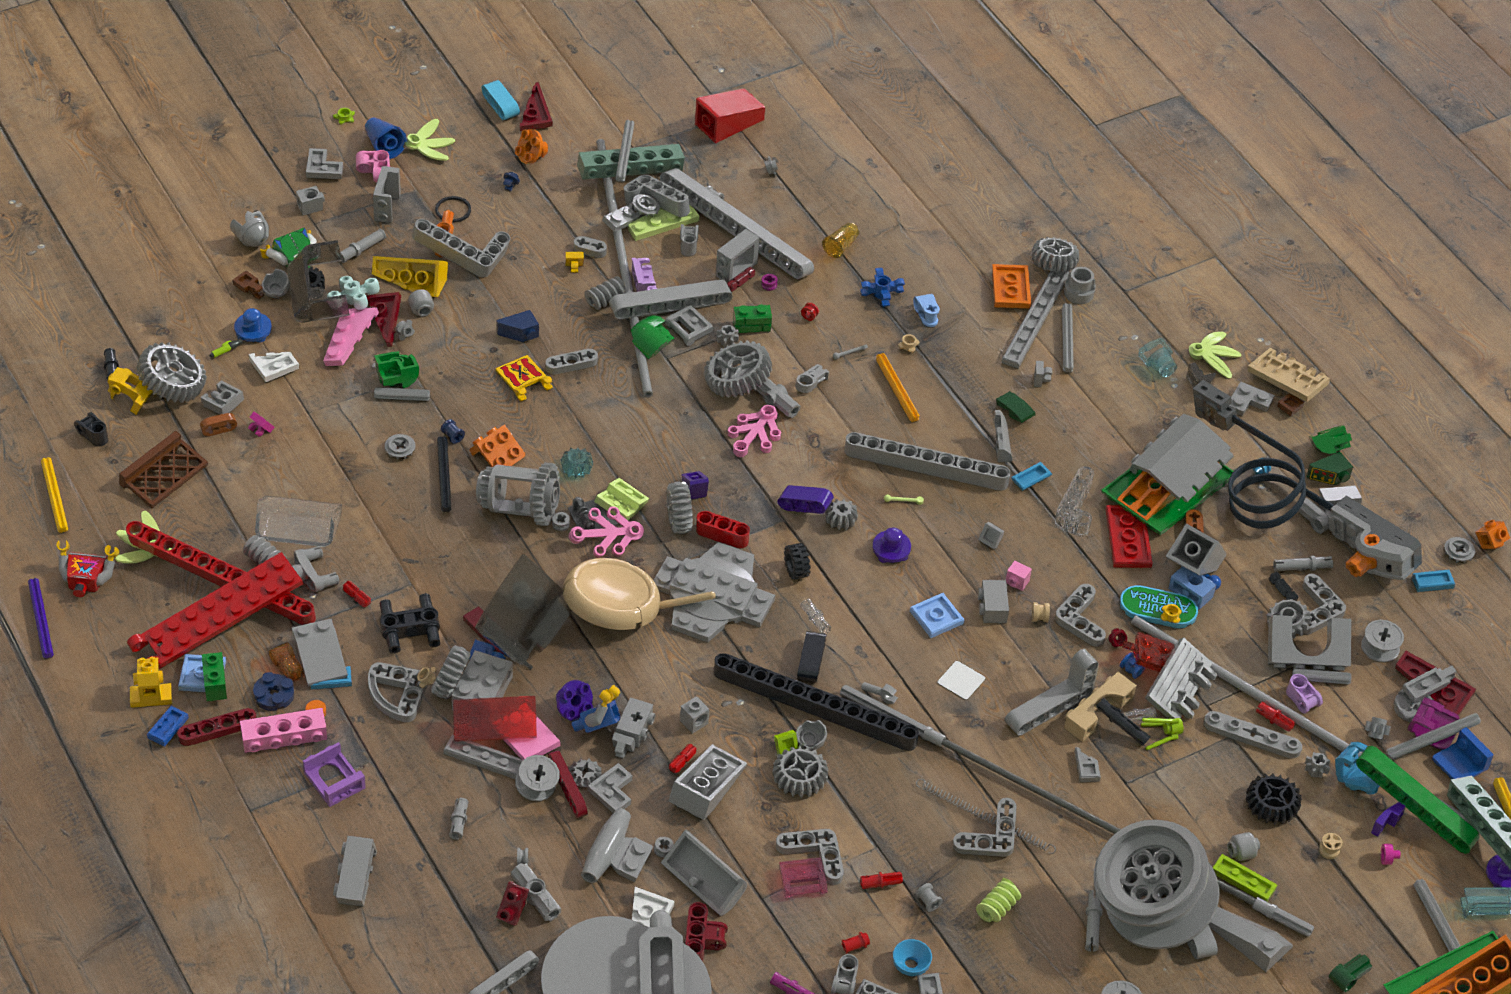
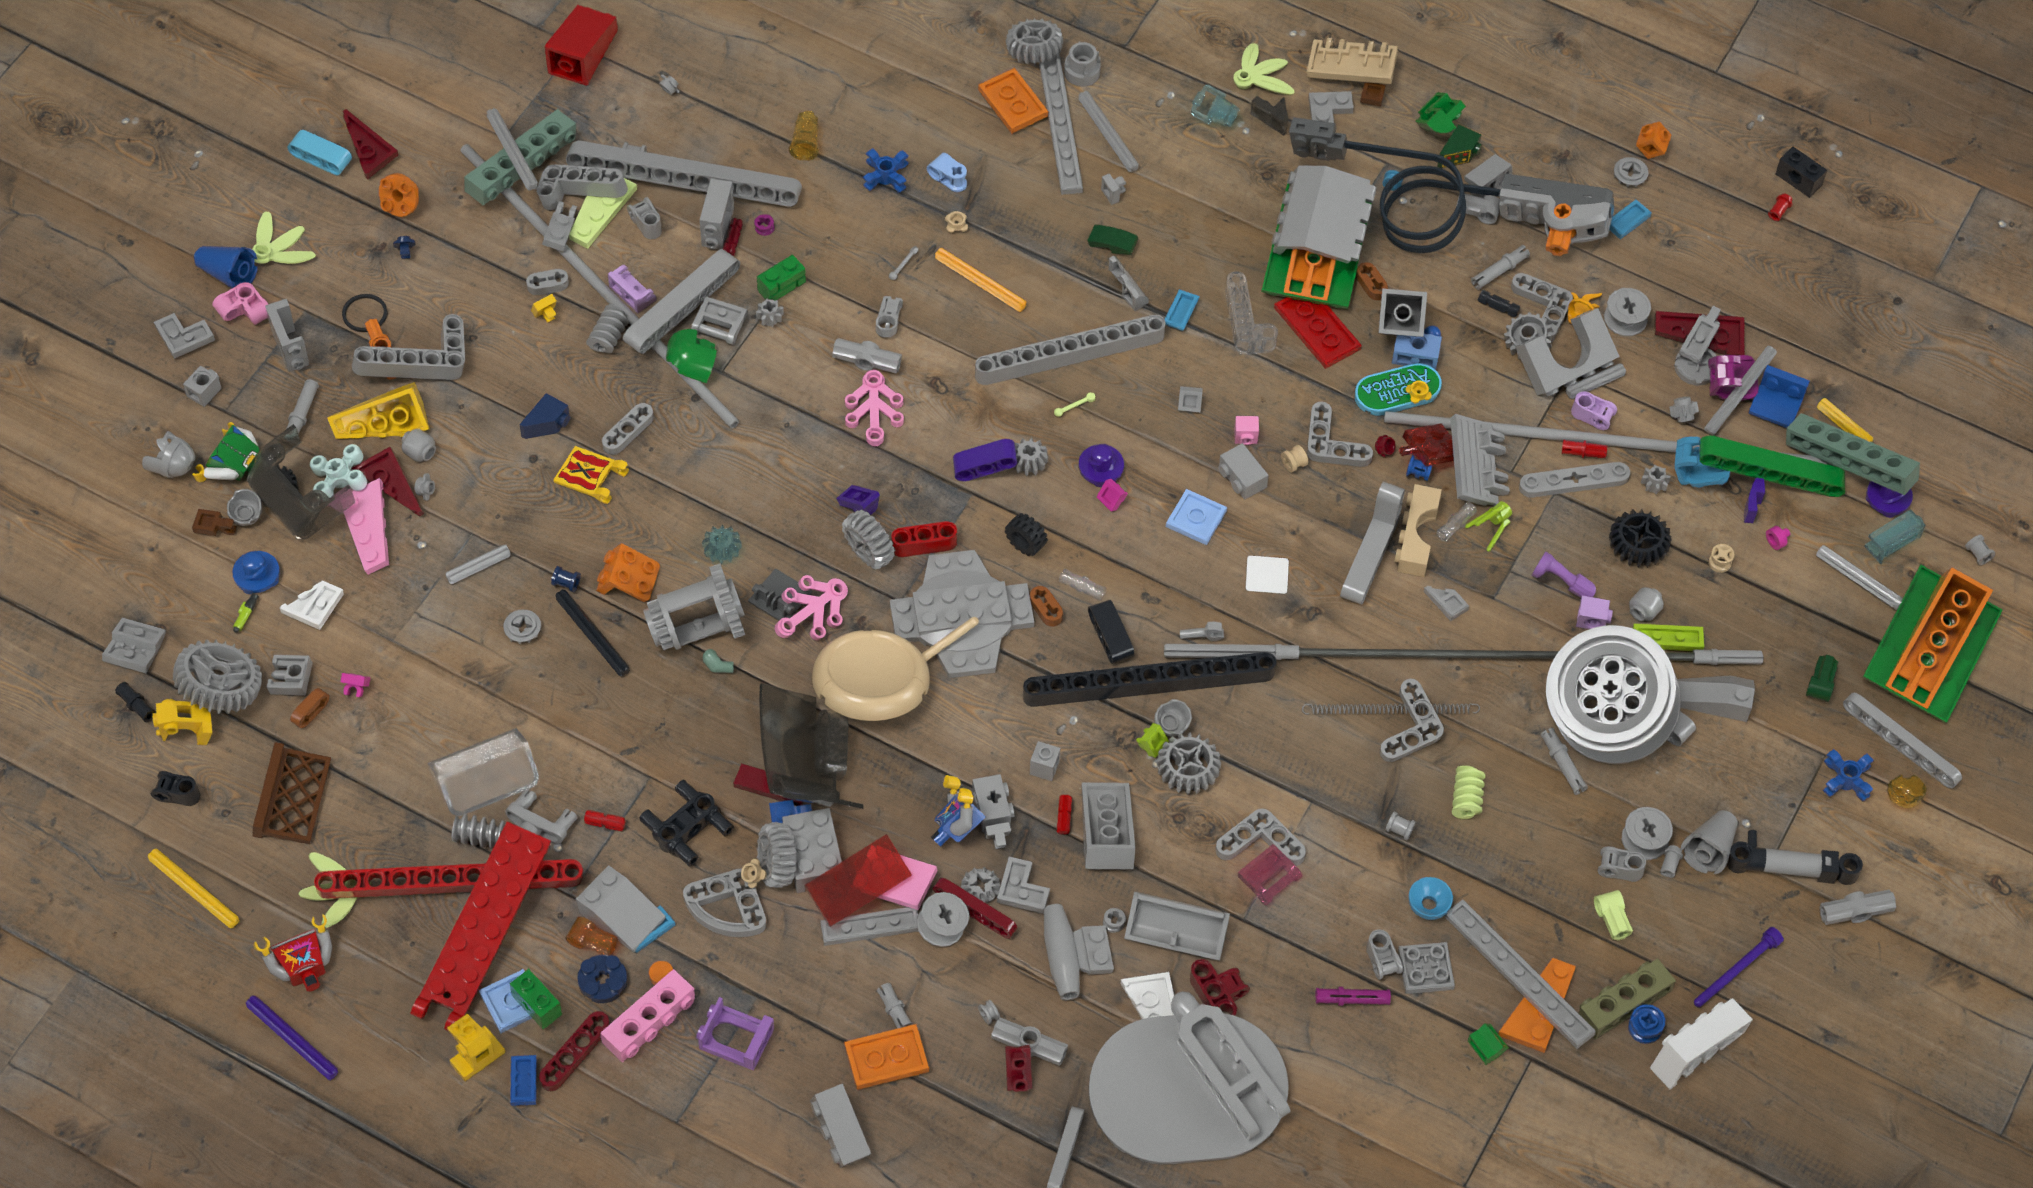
camera: 30 degrees left, 10 degrees up
(139, 332) = (134, 645): none -> light grey slope
(344, 115) = (155, 255): lime plate -> none
(396, 368) = (454, 538): green brick -> none
(426, 847) = (886, 1056): none -> orange plate
(512, 535) = (715, 664): none -> sand green arm
(560, 516) = (749, 614): light grey bush -> none
(574, 699) = (917, 814): dark purple plate -> none
(623, 497) = (796, 560): yellowish green slope -> none
(652, 206) = (577, 196): light grey gear -> none
(752, 371) = (817, 361): light grey gear -> none
(774, 616) = (1049, 603): none -> dark orange beam
(809, 311) = (832, 238): red bush -> none
(856, 942) = (1365, 913): red pin -> none
(881, 880) = (1343, 834): red axle -> none
(883, 569) = (1111, 495): none -> dark pink tile
(1116, 716) = (1446, 533): black pin -> none
(1197, 805) = (1577, 583): none -> medium lavender piece
(1198, 827) = (1593, 613): none -> lavender brick
(1354, 618) = (1578, 306): none -> light orange piece

